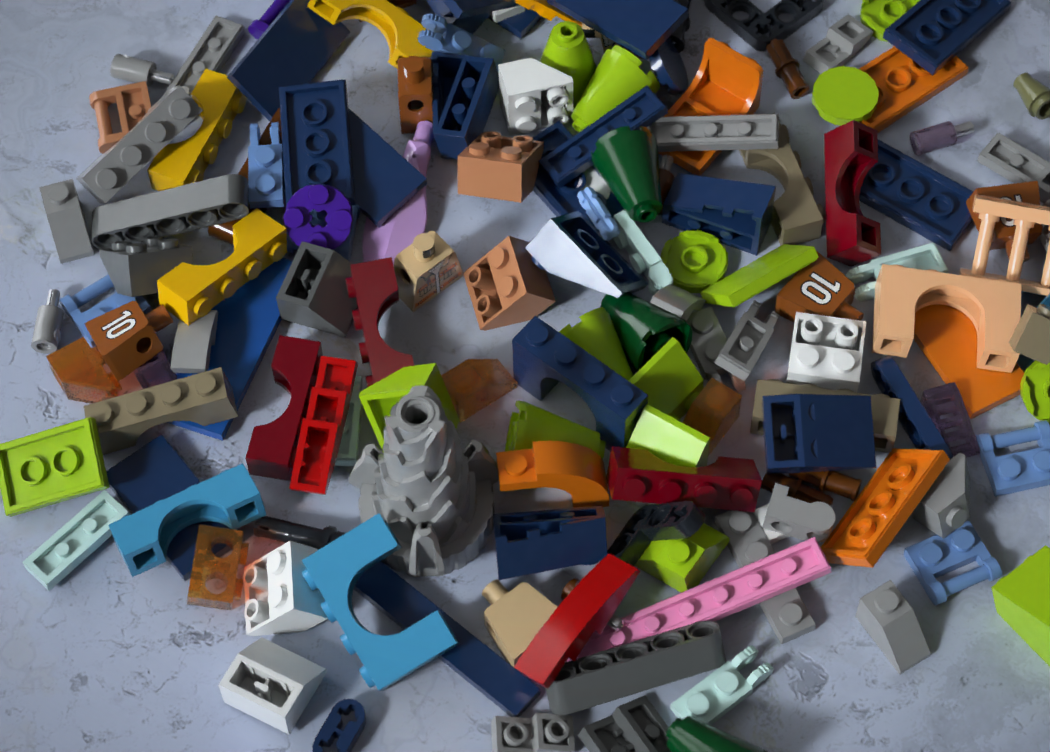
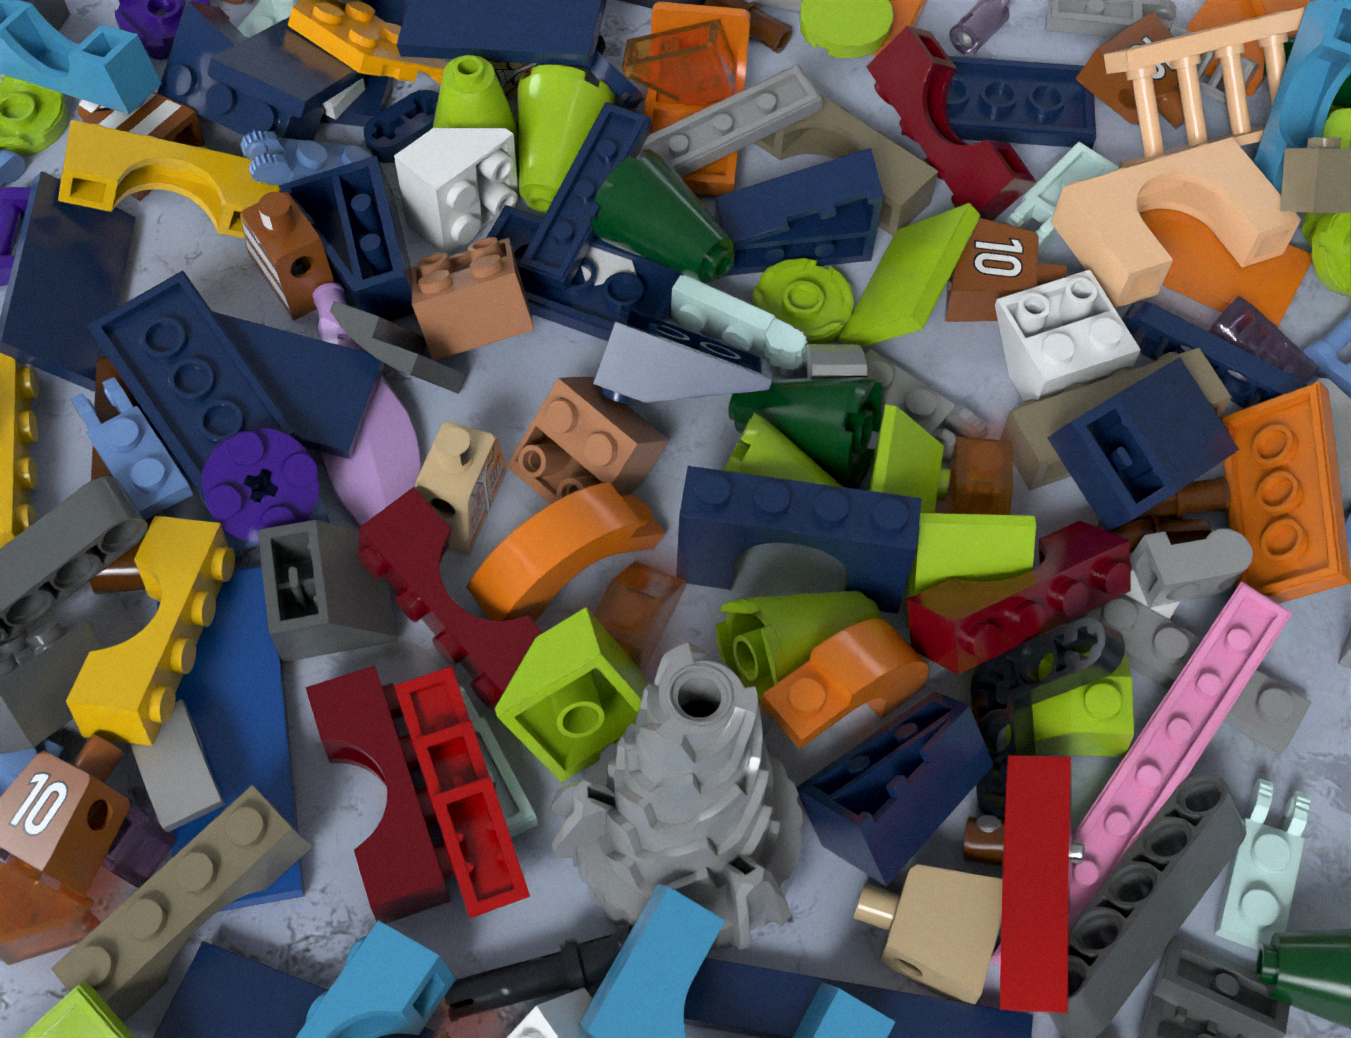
camera: 35 degrees left, 0 degrees up
(437, 176) = (395, 346): none -> dark grey slope
(455, 326) = (556, 546): none -> orange arch
(531, 40) = (400, 124): none -> dark blue beam
(598, 213) = (648, 296): light blue axle -> none
(710, 82) = (684, 63): none -> clear orange slope
(746, 342) = (958, 371): light grey hinge -> none

